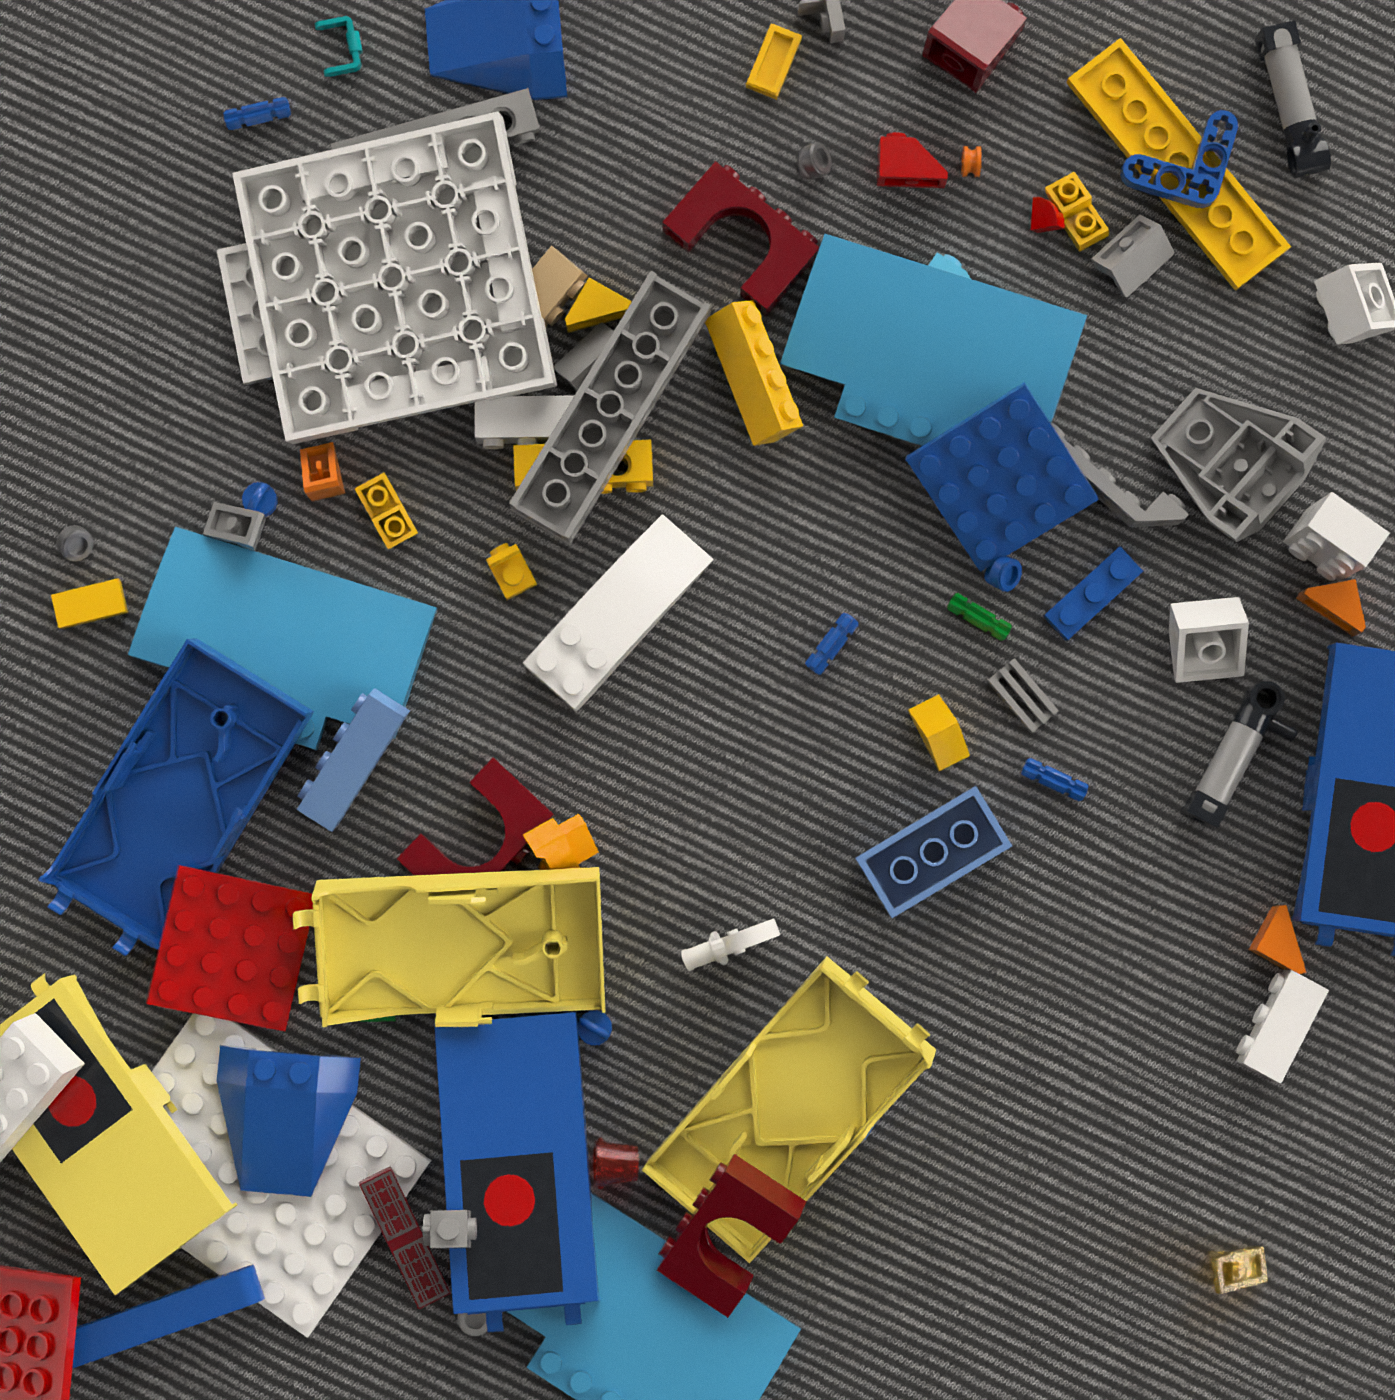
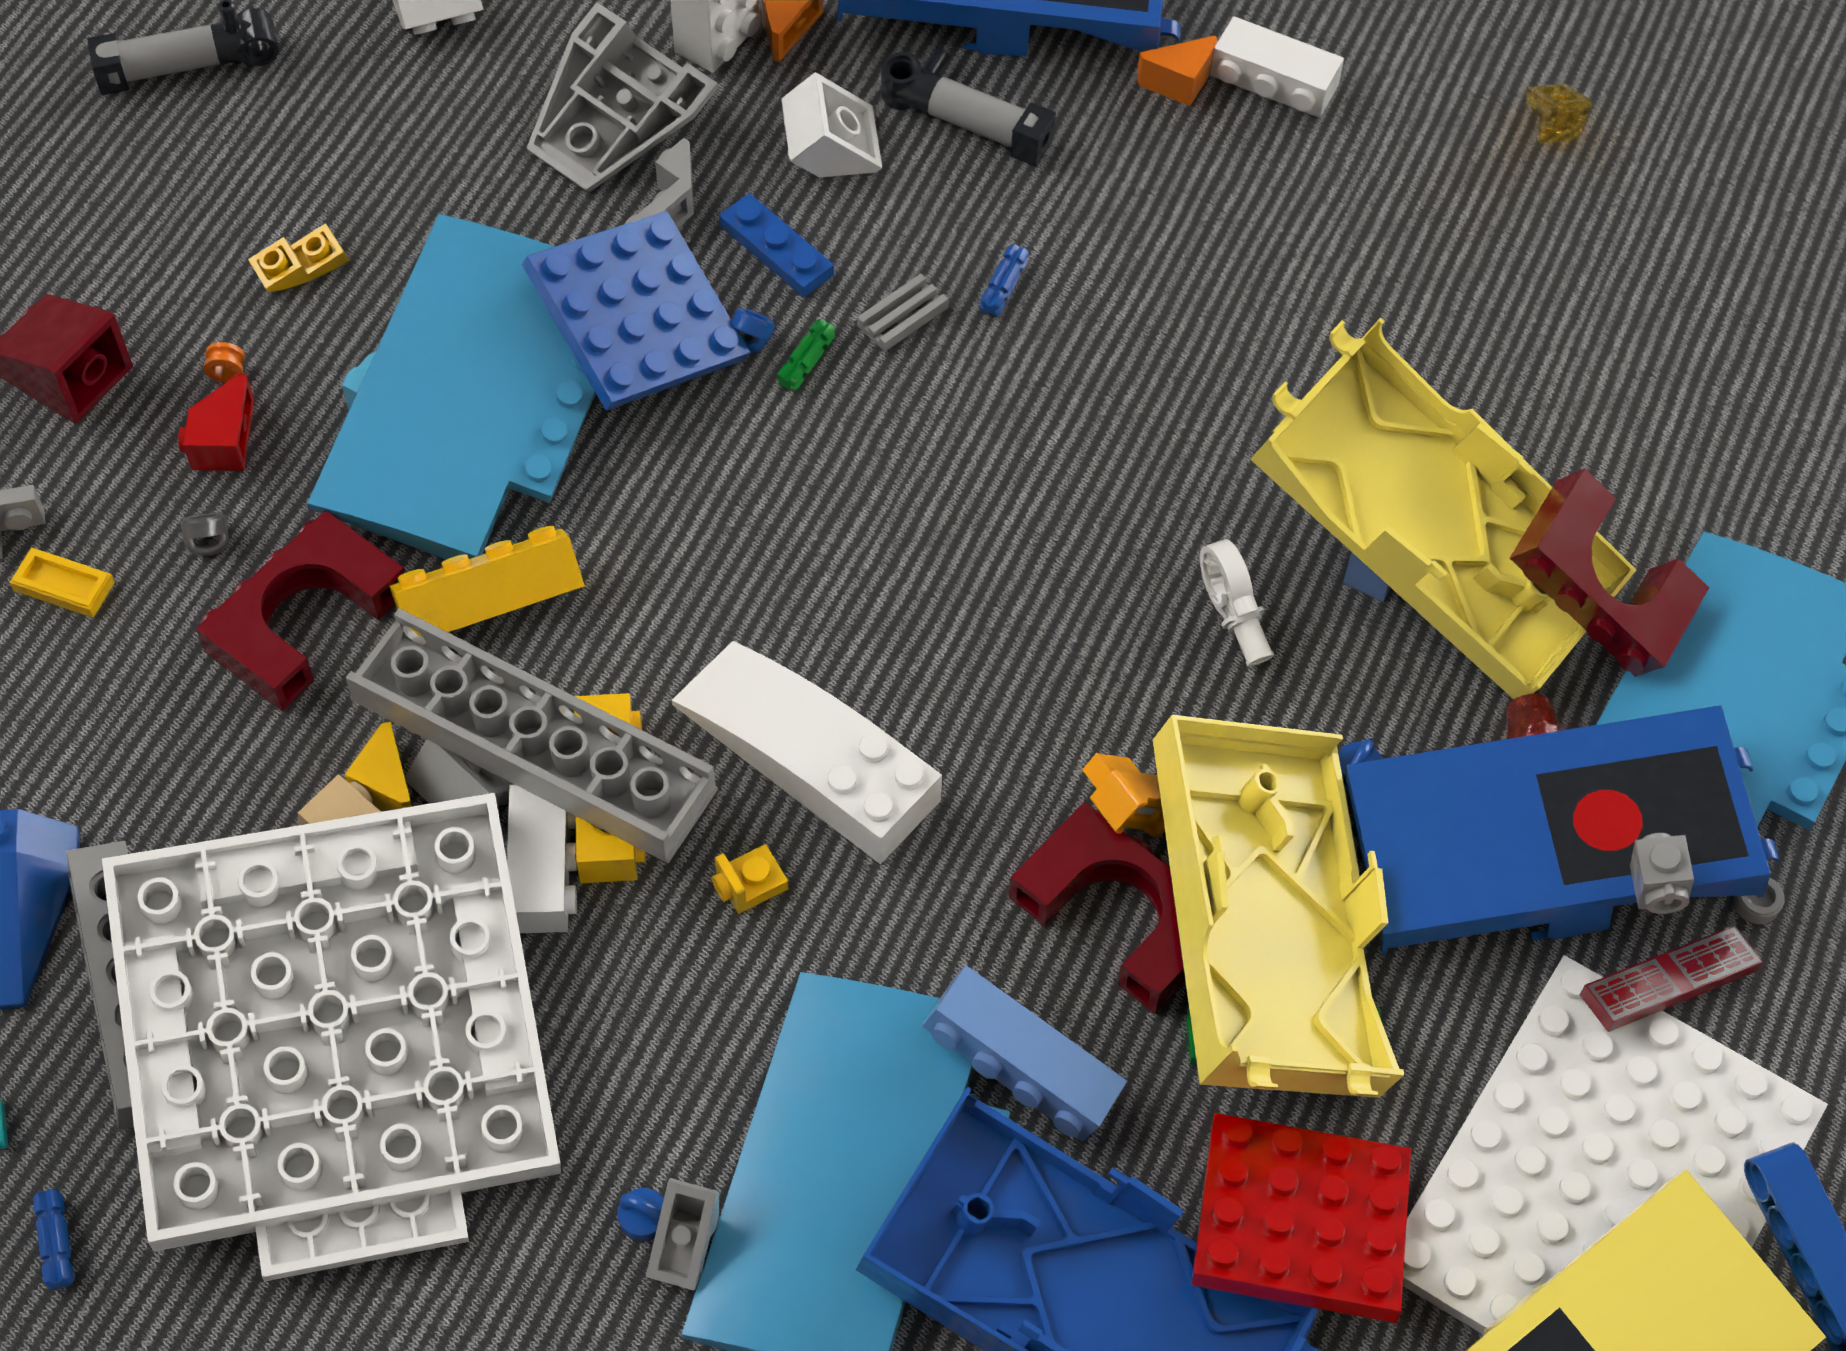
camera: 90 degrees left, 25 degrees down
(284, 1114) = (1530, 1138): blue wedge -> none
(321, 472) = (603, 1124): orange slope -> none
(386, 510) = (663, 1042): yellow slope -> none
(831, 643) = (843, 507): blue axle -> none
(933, 852) = (1103, 390): medium blue brick -> none
(939, 732) = (949, 392): yellow slope -> none
(1045, 216) = (302, 286): red tile -> none
(1134, 254) = (355, 202): light grey panel -> none
(1148, 123) = (246, 161): yellow plate -> none
(1198, 174) = (264, 131): blue beam -> none

